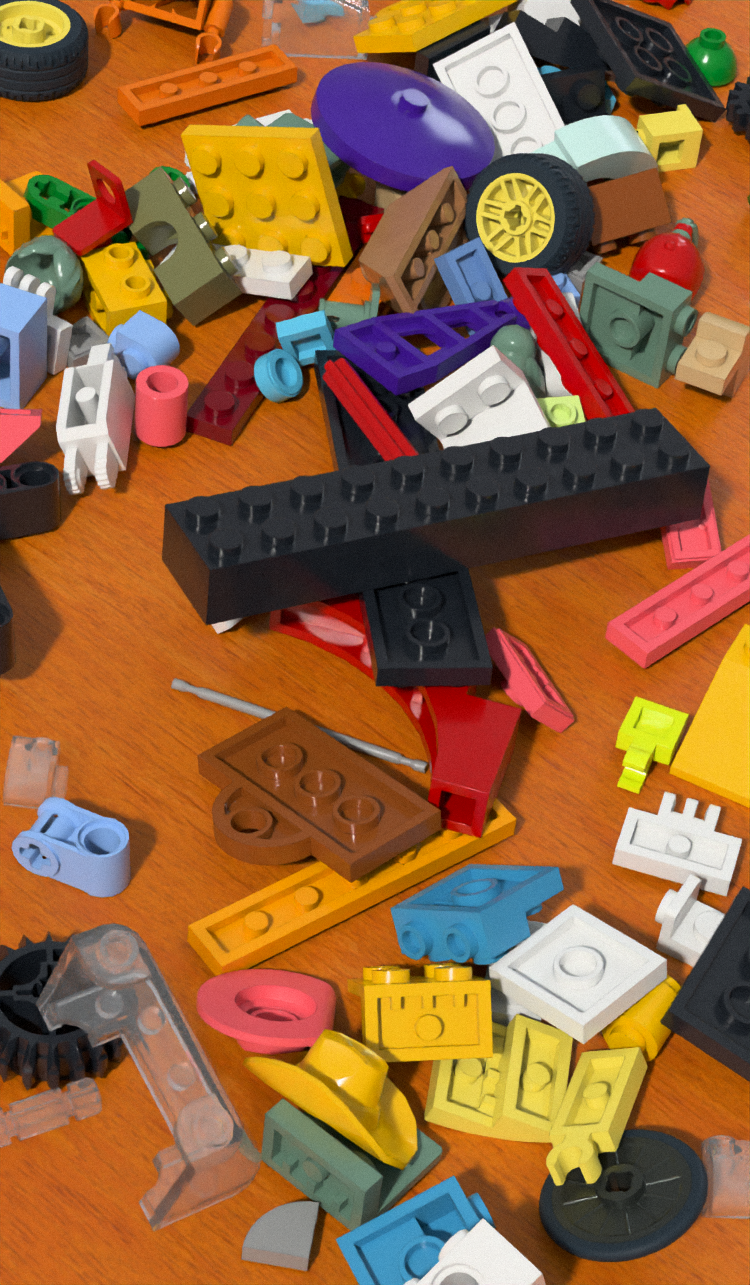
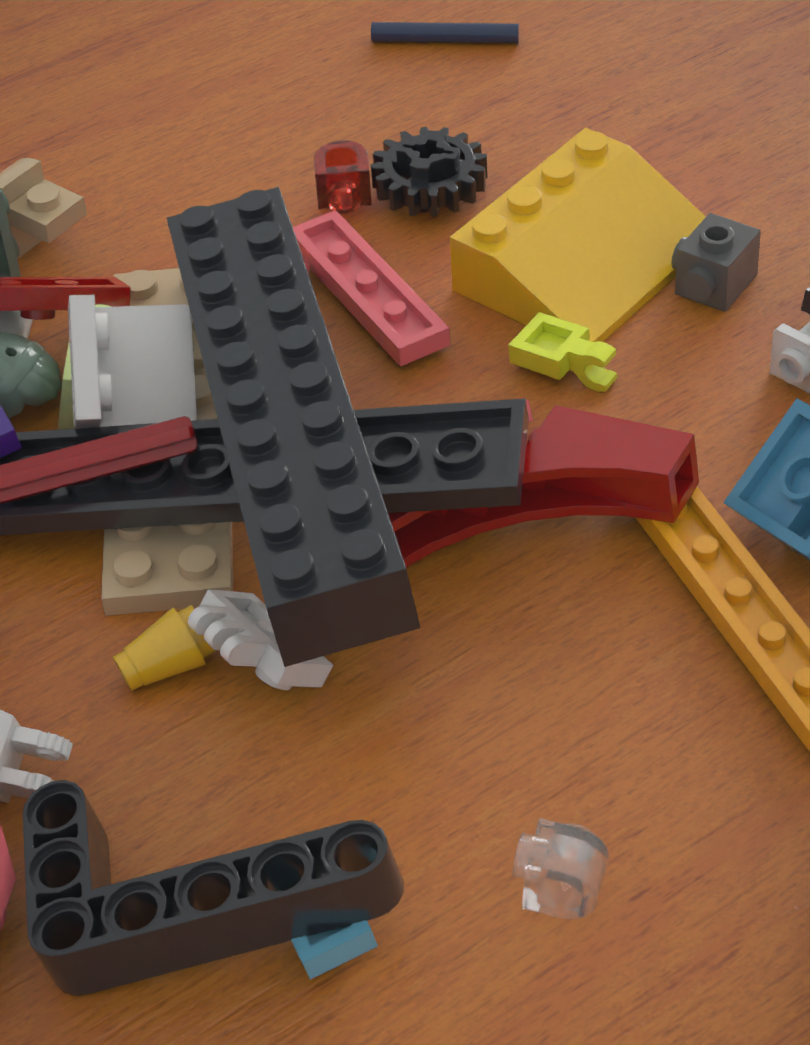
camera: 70 degrees left, 0 degrees up
(79, 848) = (674, 843): light blue piece -> none
(261, 712) = (481, 632): light grey piece -> none
(309, 800) = (636, 608): dark orange plate -> none
(678, 845) = (702, 352): white hinge -> none

